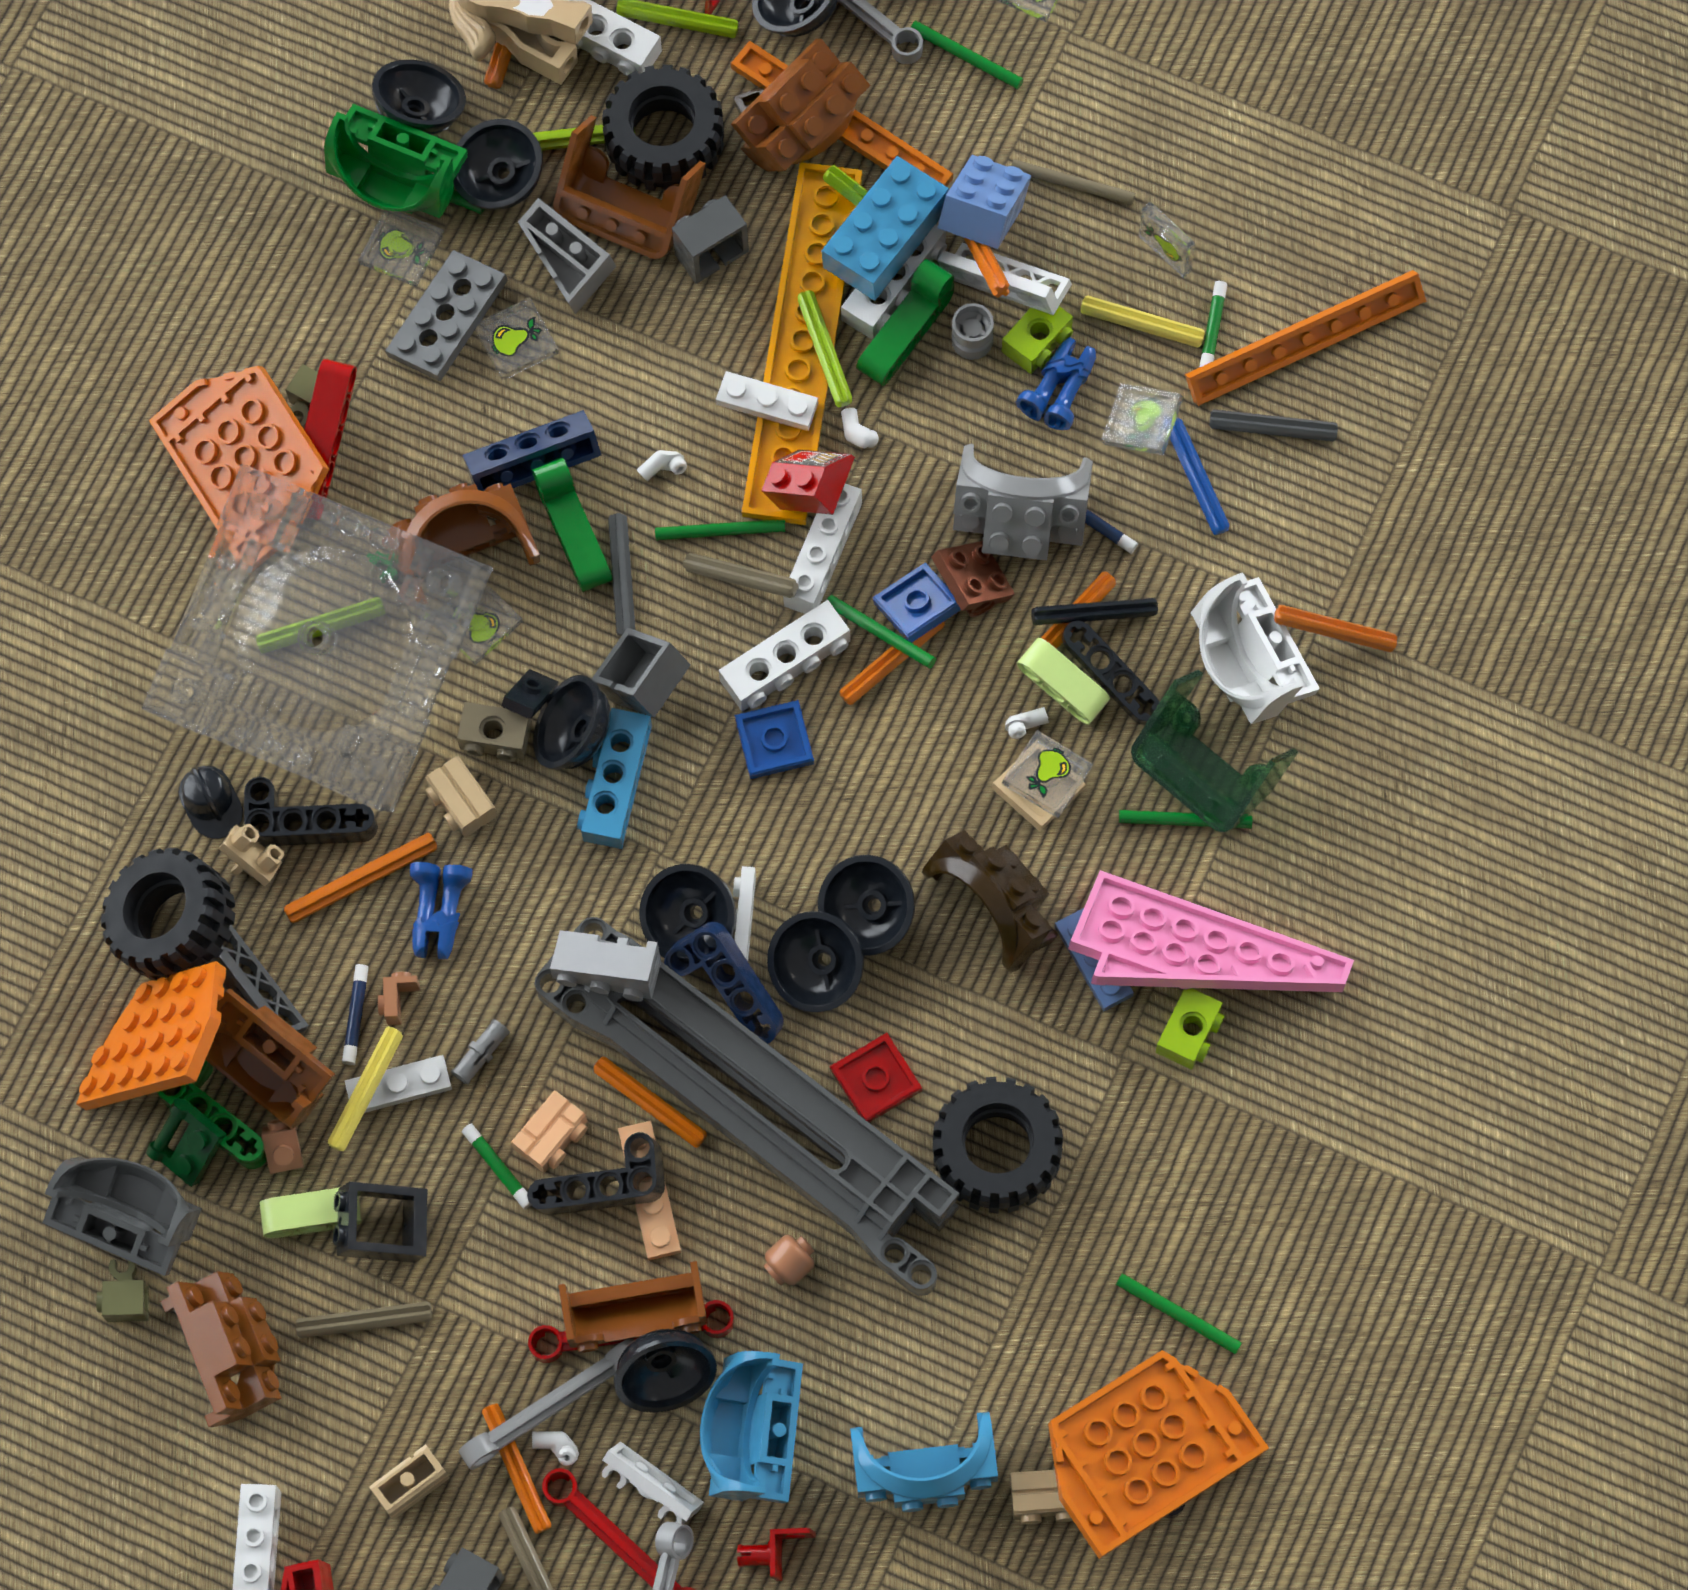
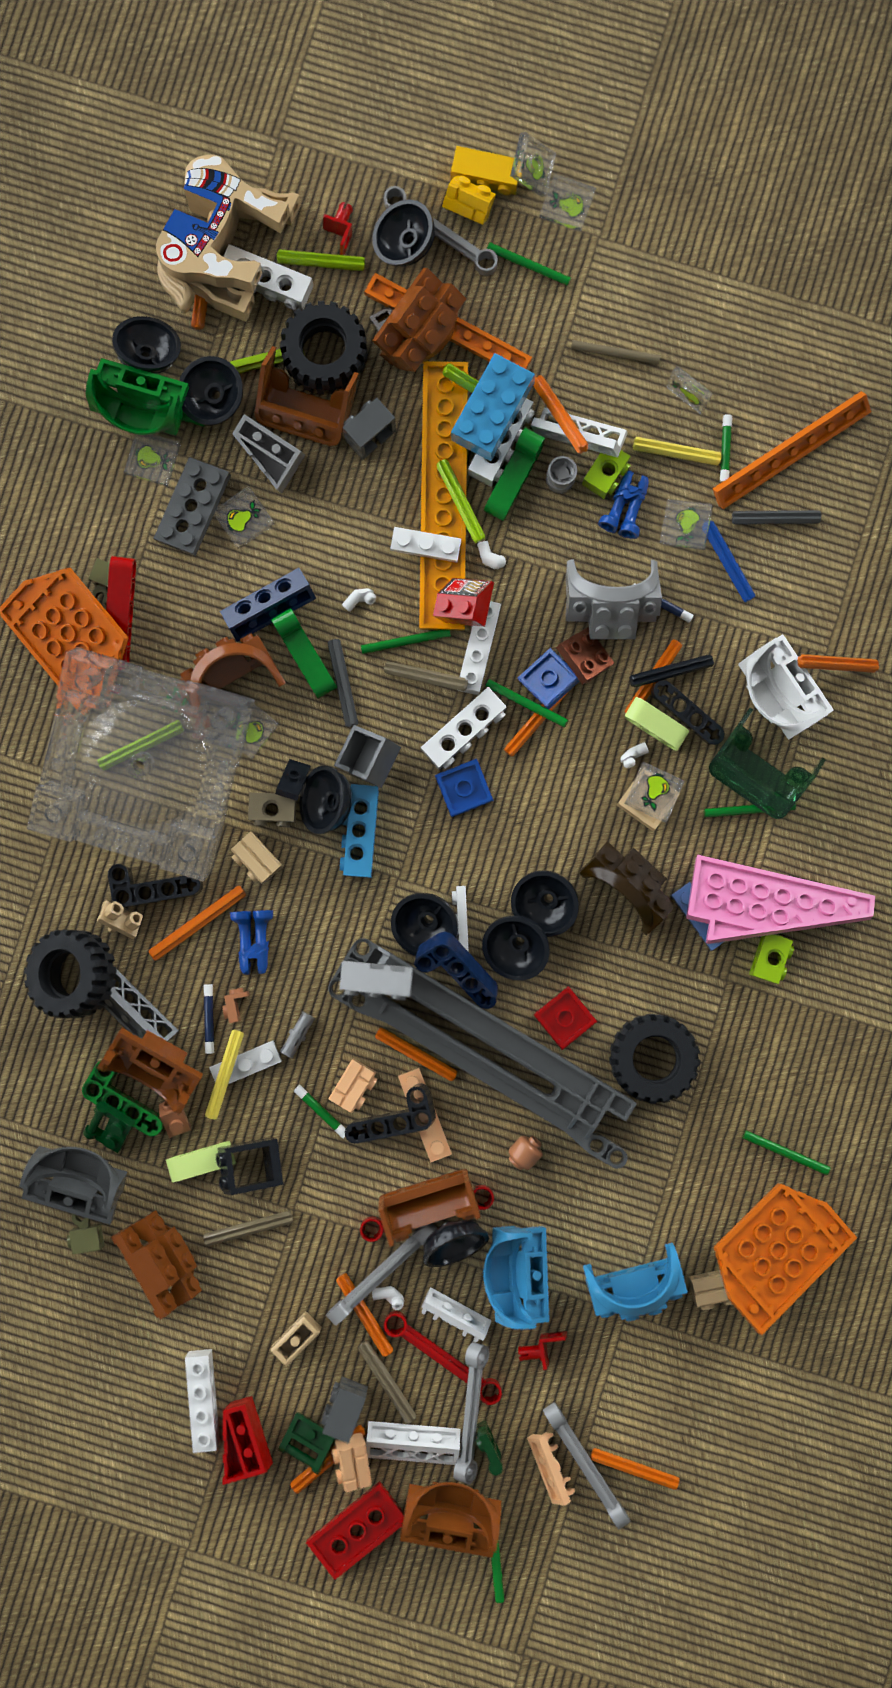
camera: 15 degrees left, 15 degrees up
(157, 1038) = (78, 1066): orange plate -> none
(210, 801) = (85, 880): black piece -> none
(984, 201) = (559, 378): medium blue brick -> none

